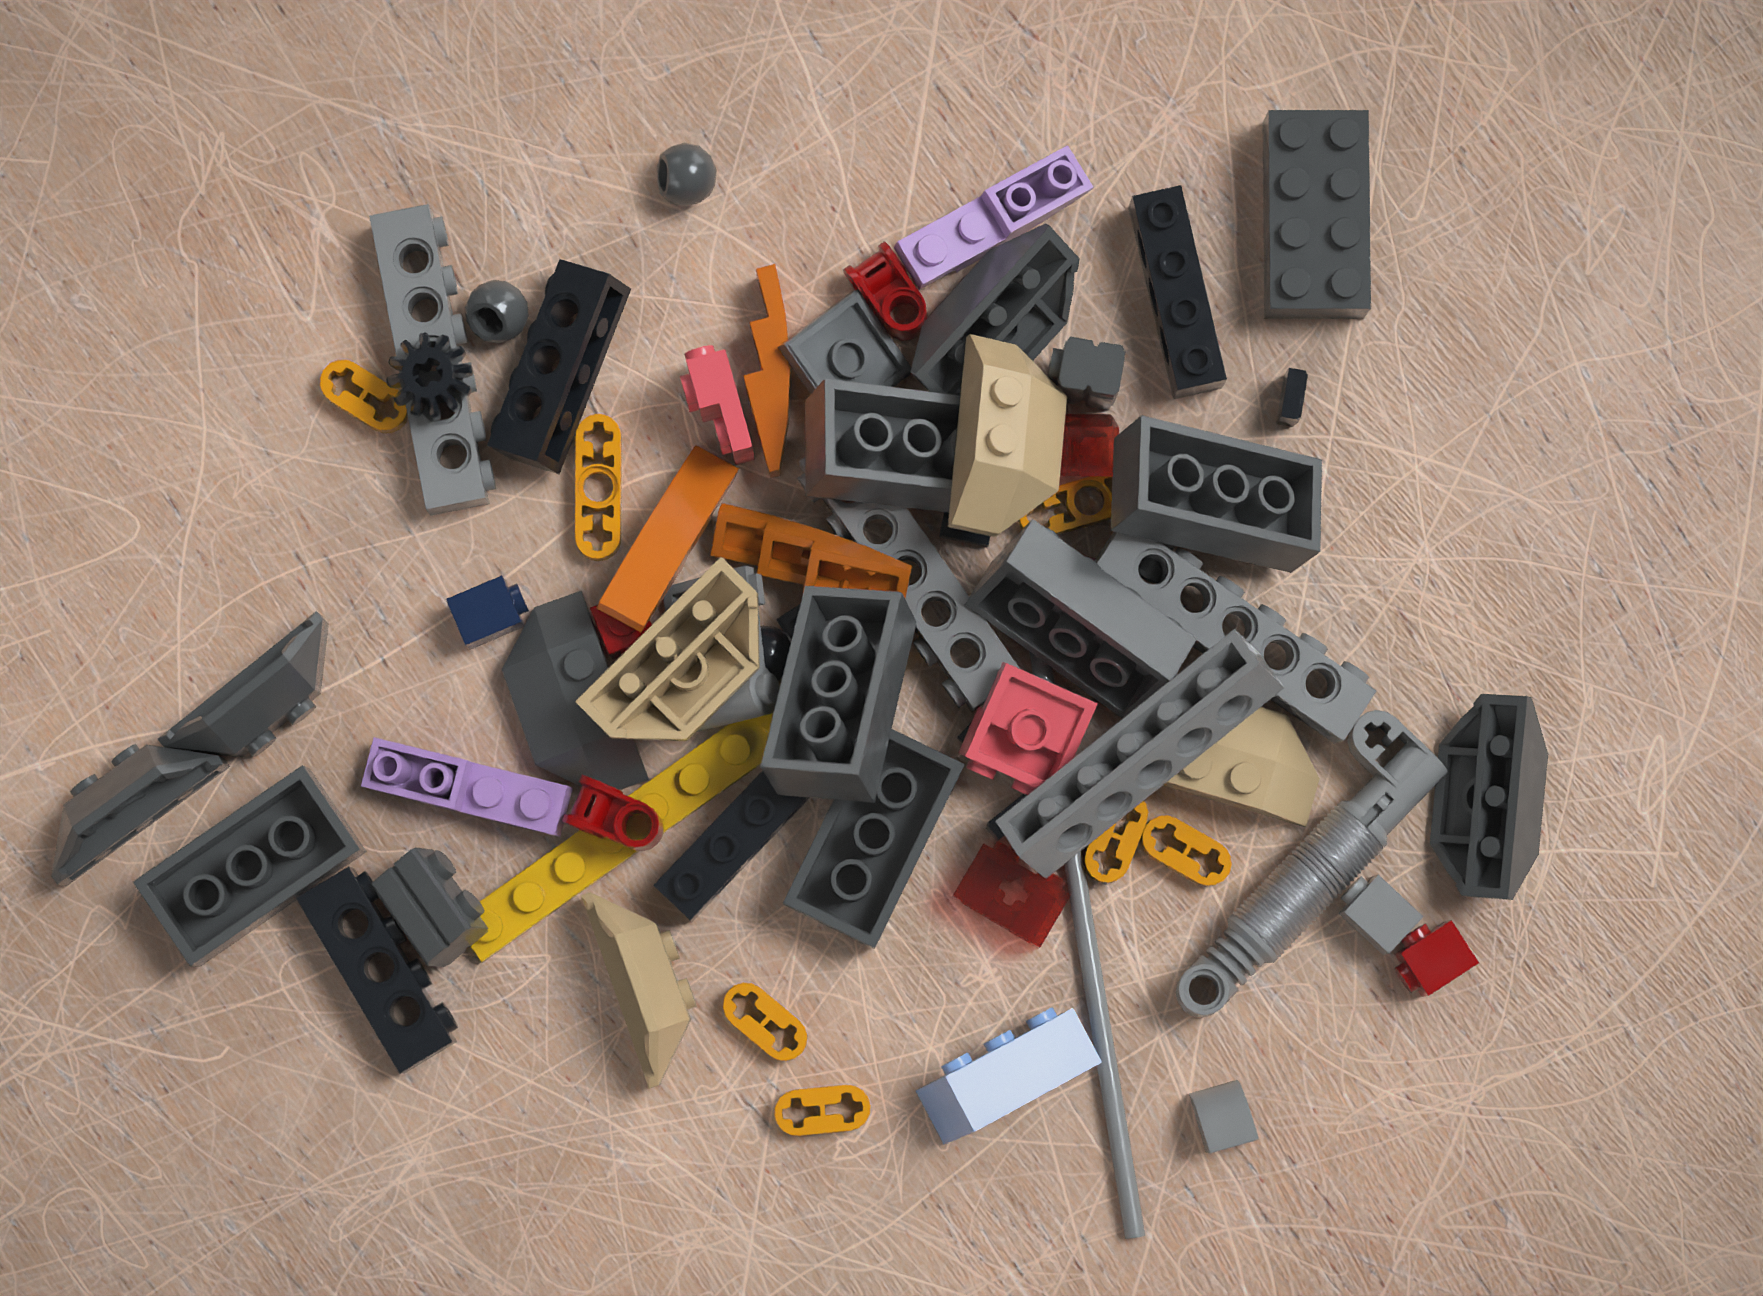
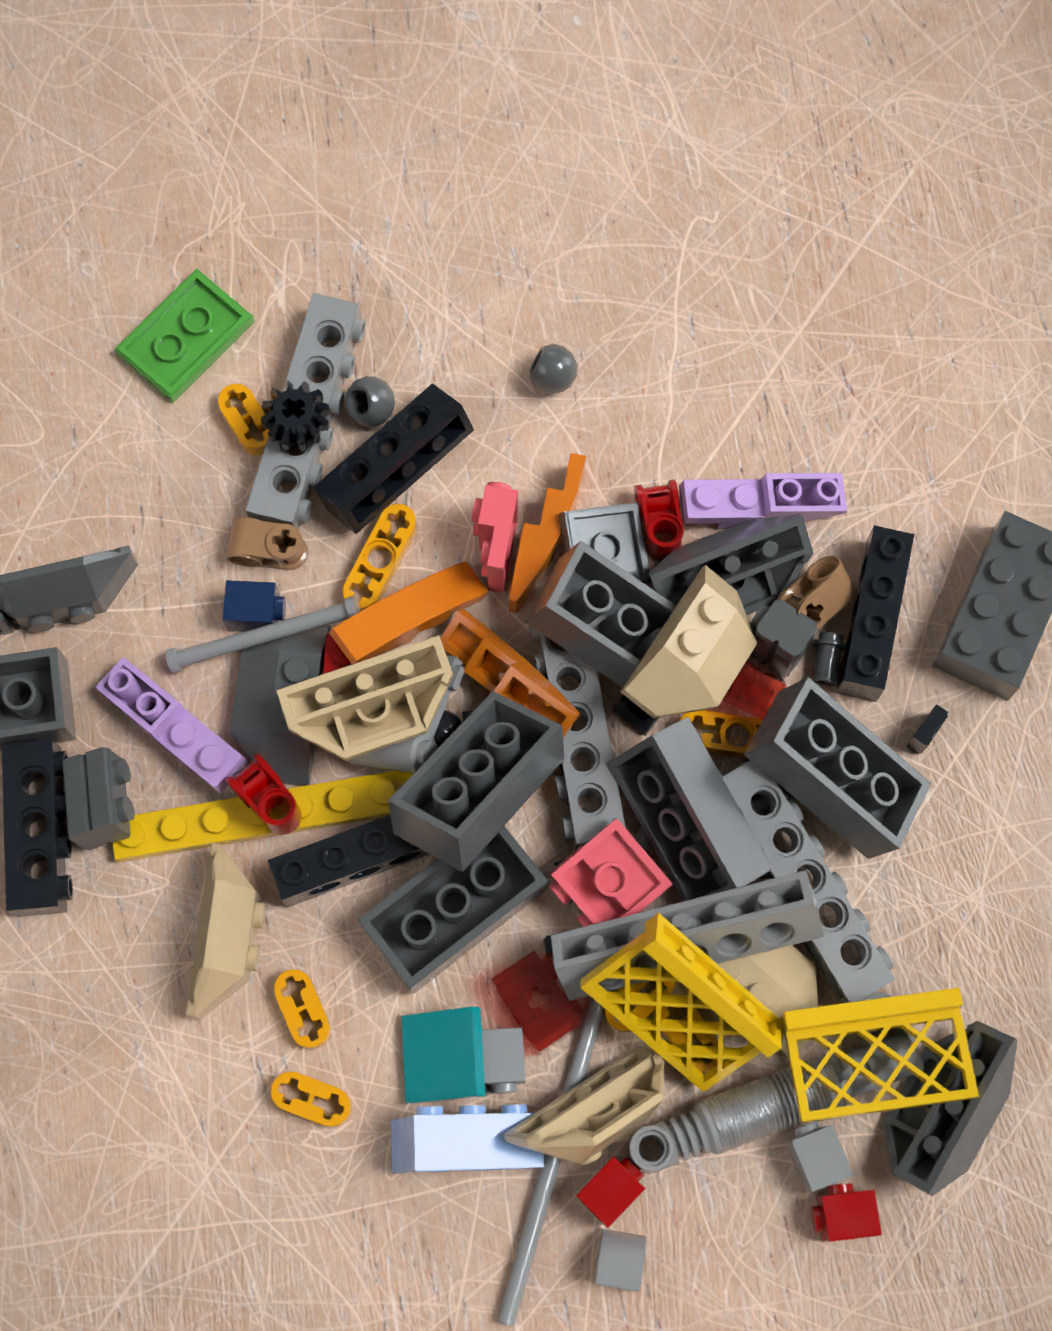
camera: 30 degrees right, 10 degrees down
(240, 329) = (184, 335): none -> bright green tile
(455, 538) = (259, 544): none -> medium nougat piece
(514, 641) = (178, 659): none -> light grey bar
(940, 998) = (443, 1055): none -> teal tile
(1003, 972) = (503, 1059): none -> light grey brick
(1106, 298) = (821, 590): none -> medium nougat piece
(1129, 976) = (596, 1110): none -> tan wedge
(1148, 367) = (828, 658): none -> dark grey pin
(1182, 1051) = (612, 1190): none -> red brick
(1187, 799) = (713, 990): none -> yellow fence
(1369, 745) = (871, 1016): none -> yellow fence

